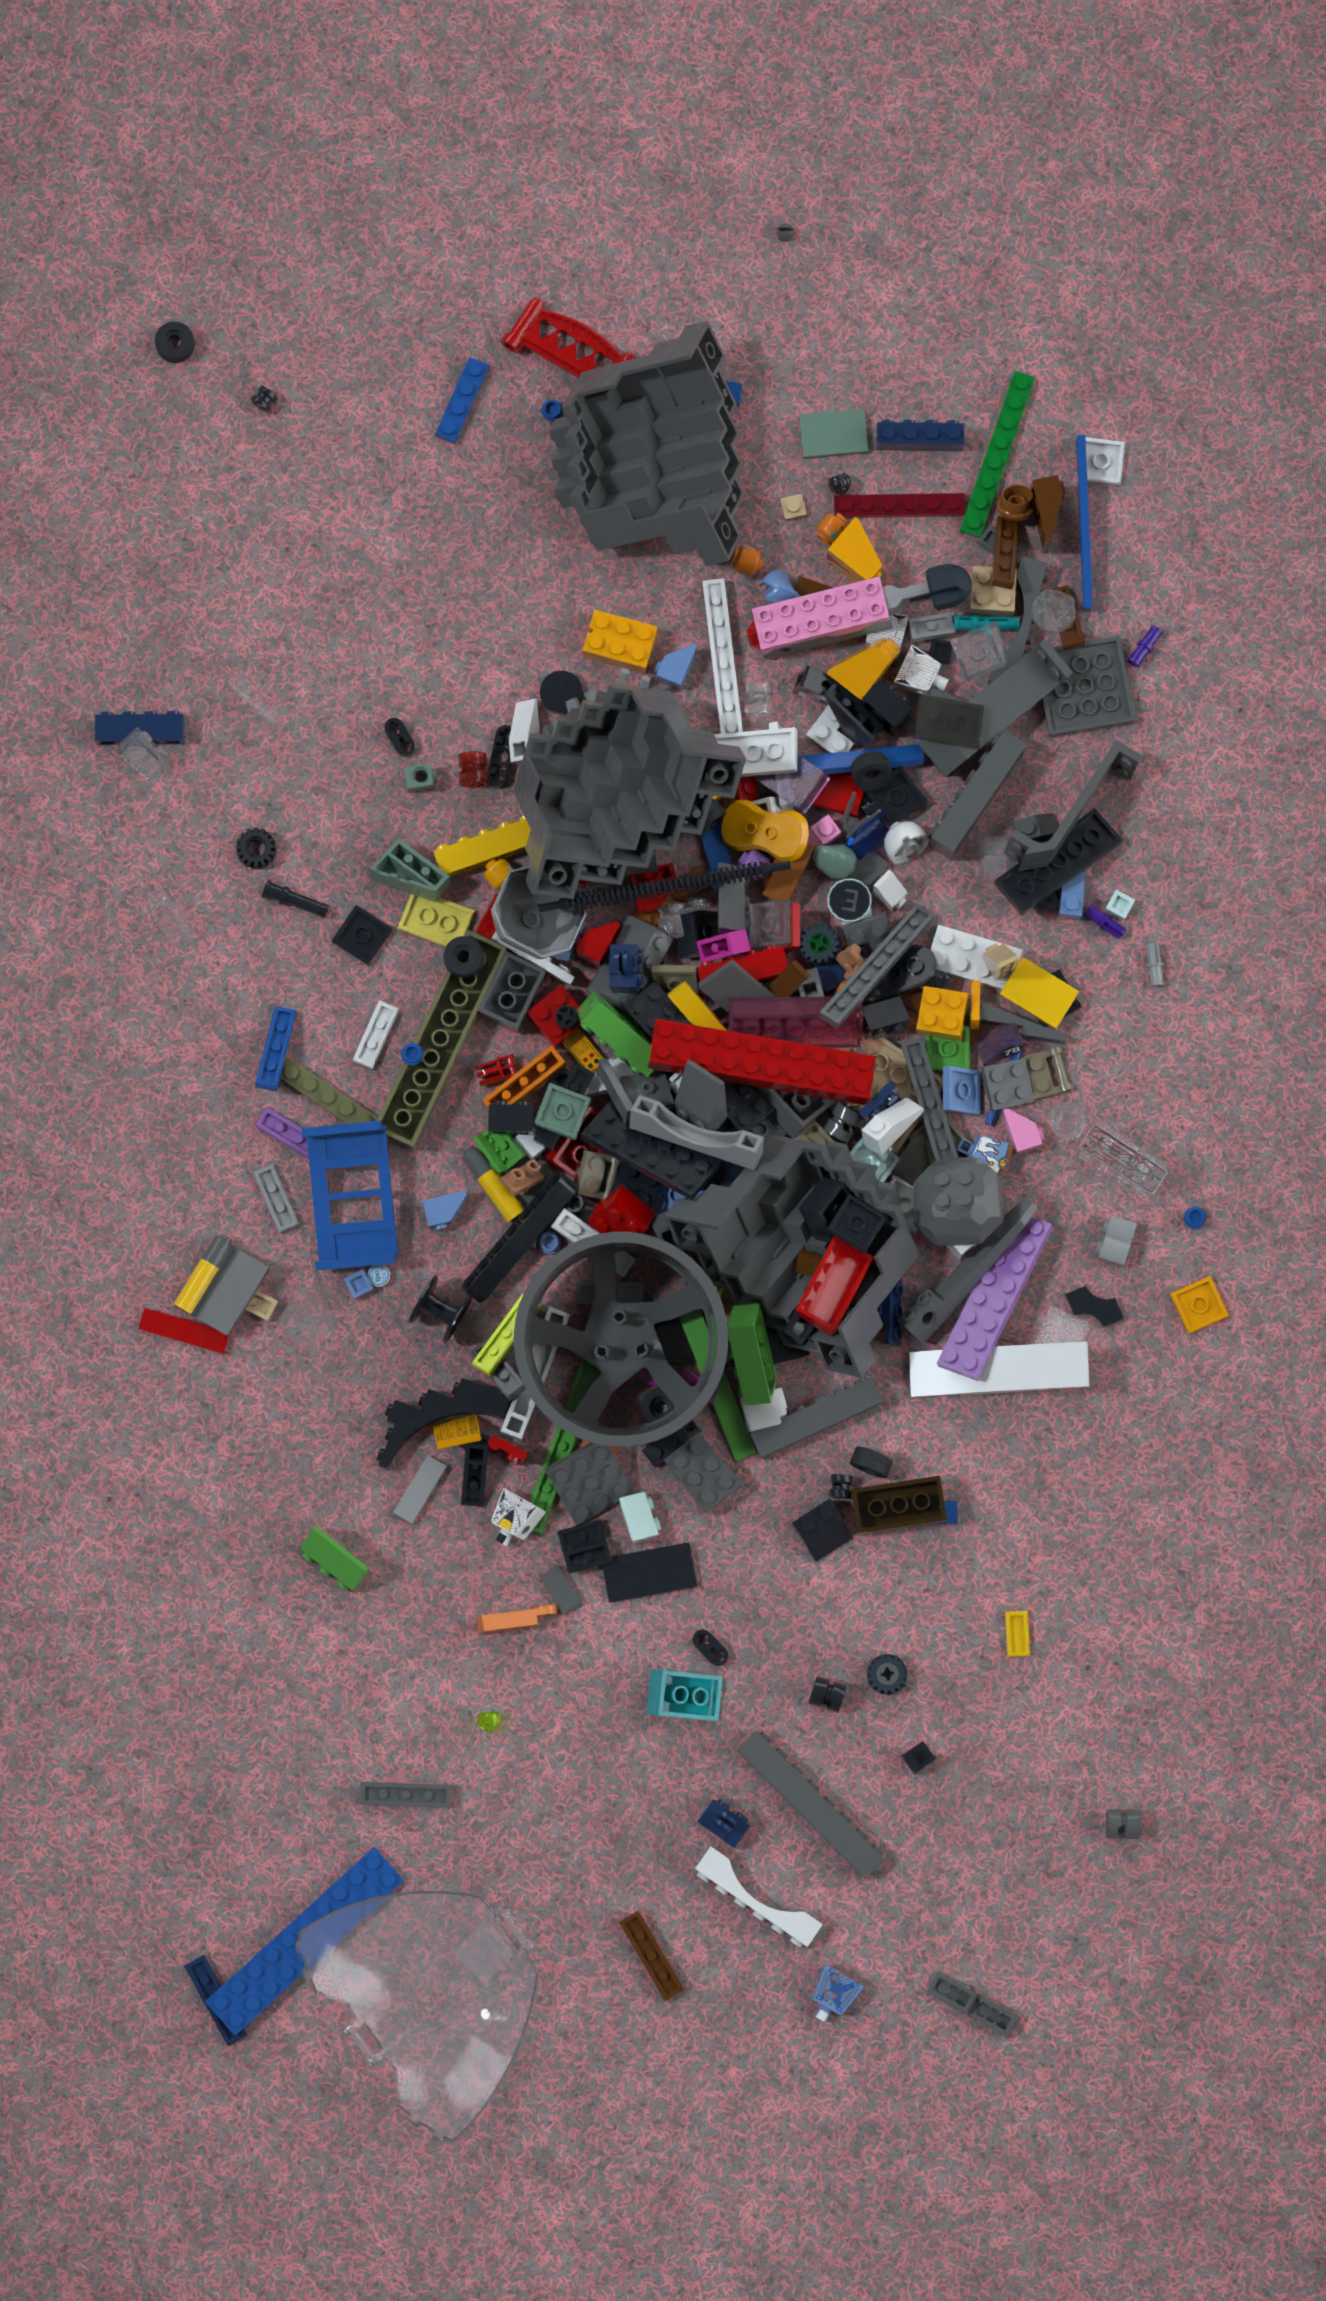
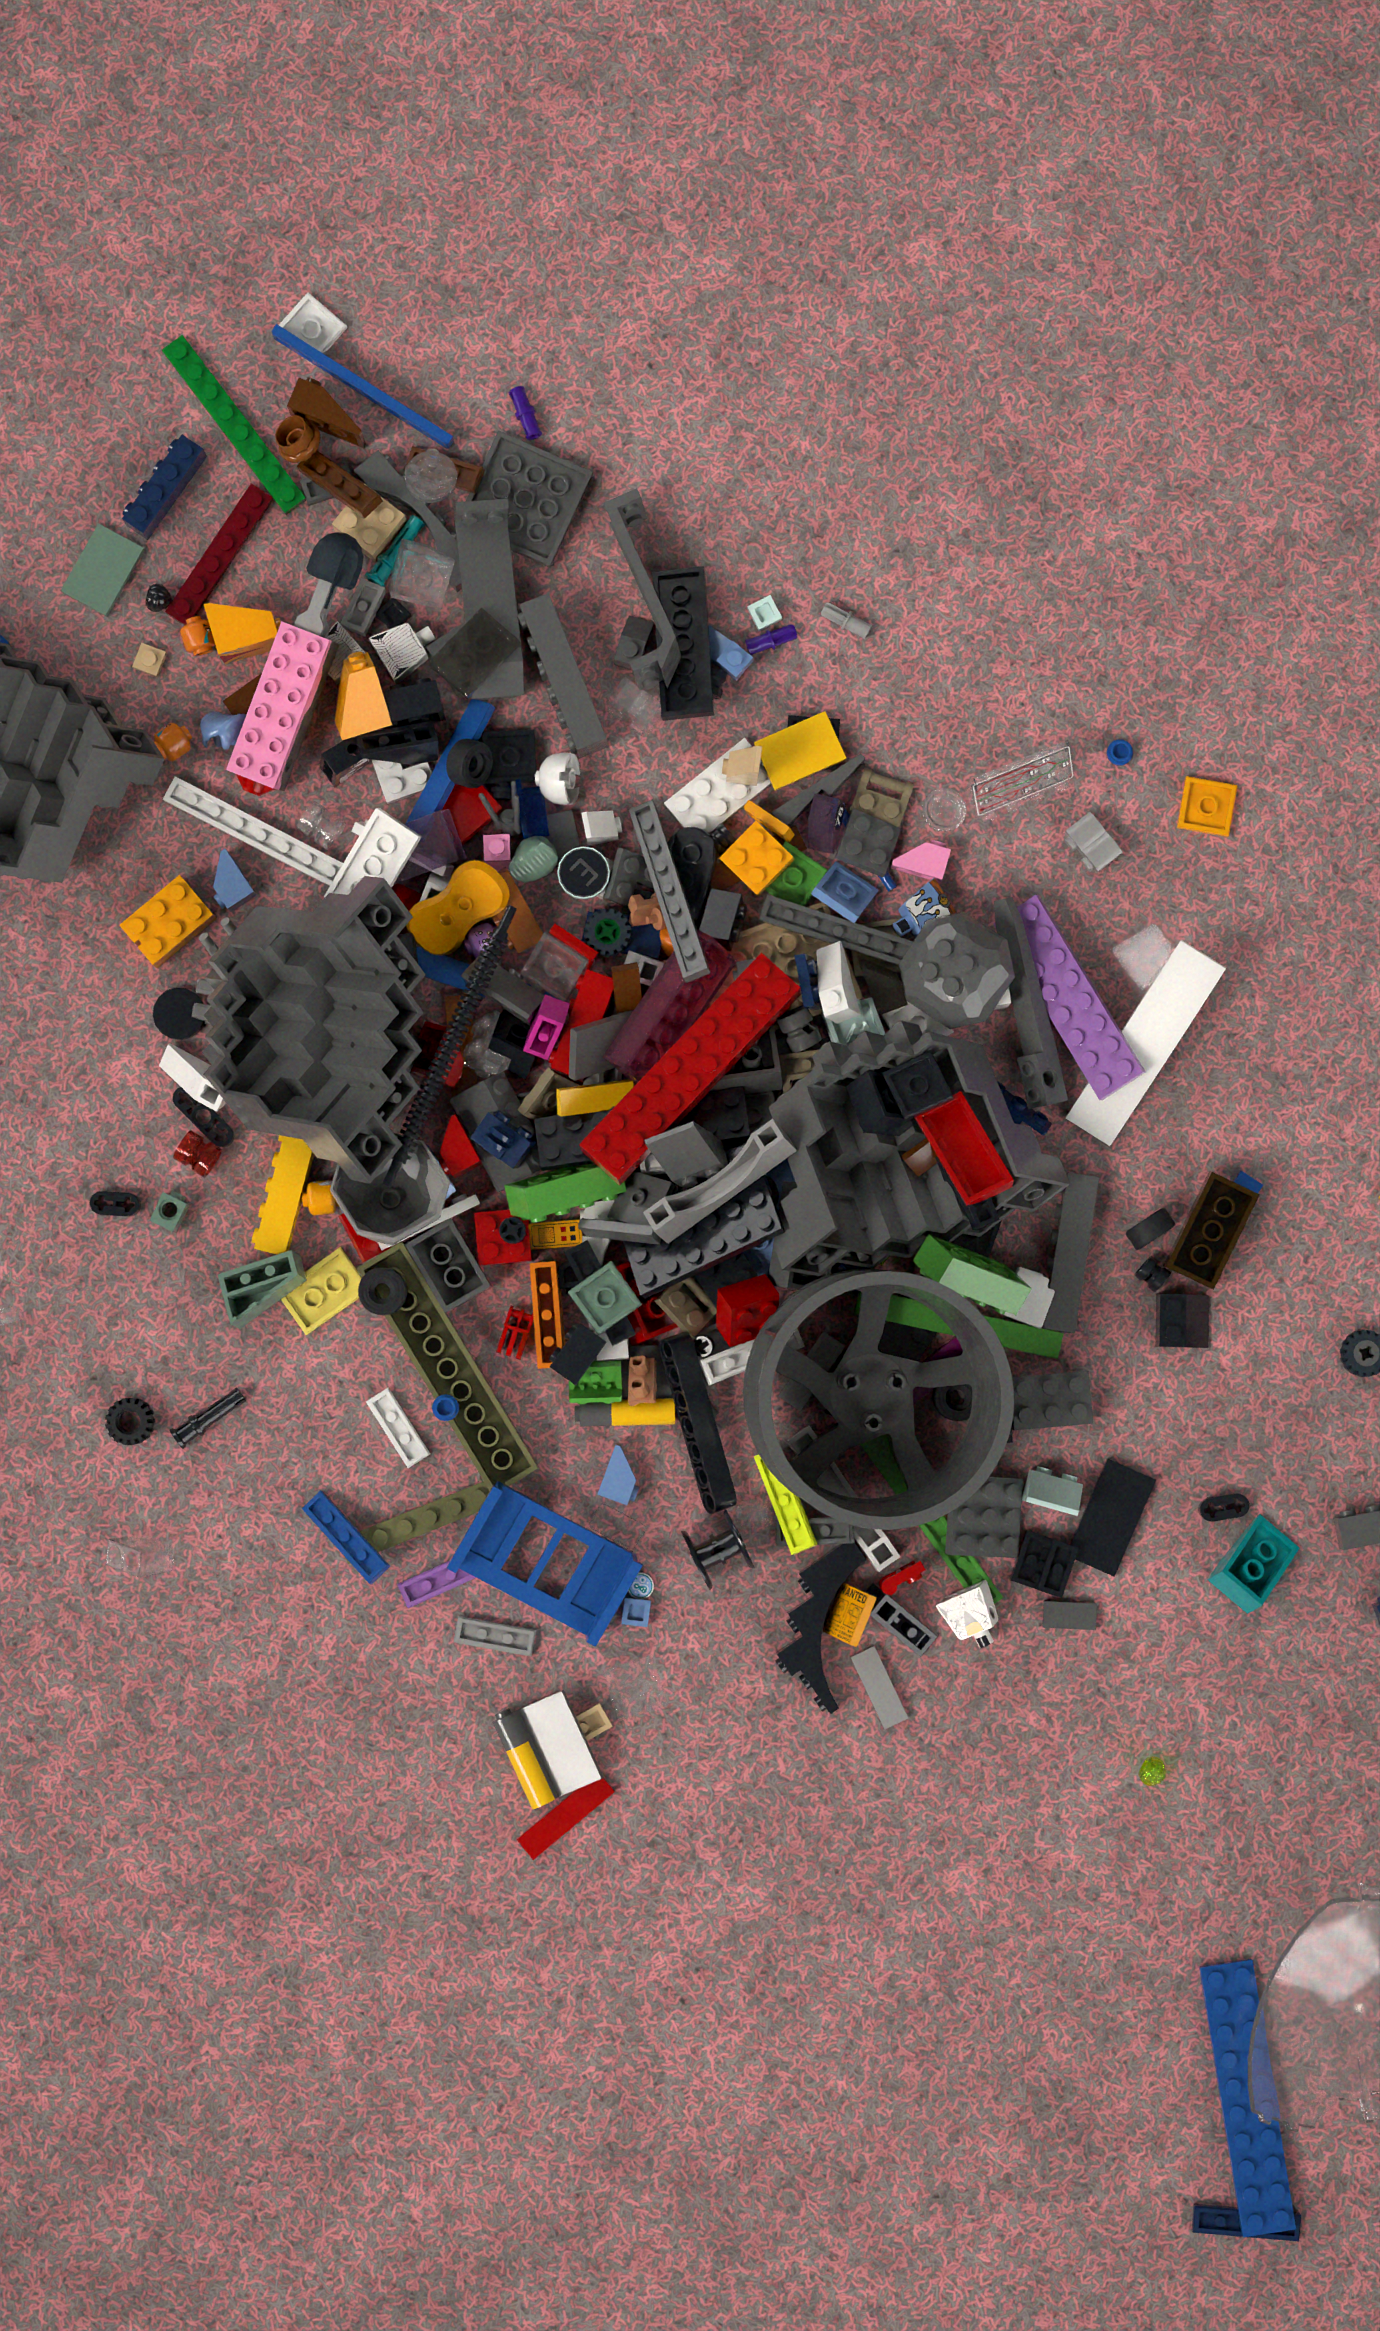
camera: 55 degrees left, 5 degrees up
(334, 1560) = (894, 1819): bright green slope -> none
(362, 935) = (288, 1374): black tile -> none
(405, 1794) = (1170, 1902): dark grey plate -> none
(512, 1620) = (1071, 1683): orange piece -> none
(549, 1243) = (721, 1396): medium blue plate -> none
(827, 1694) = (1347, 1424): black wheel -> none
(1084, 1302) = (1151, 901): black tile -> none

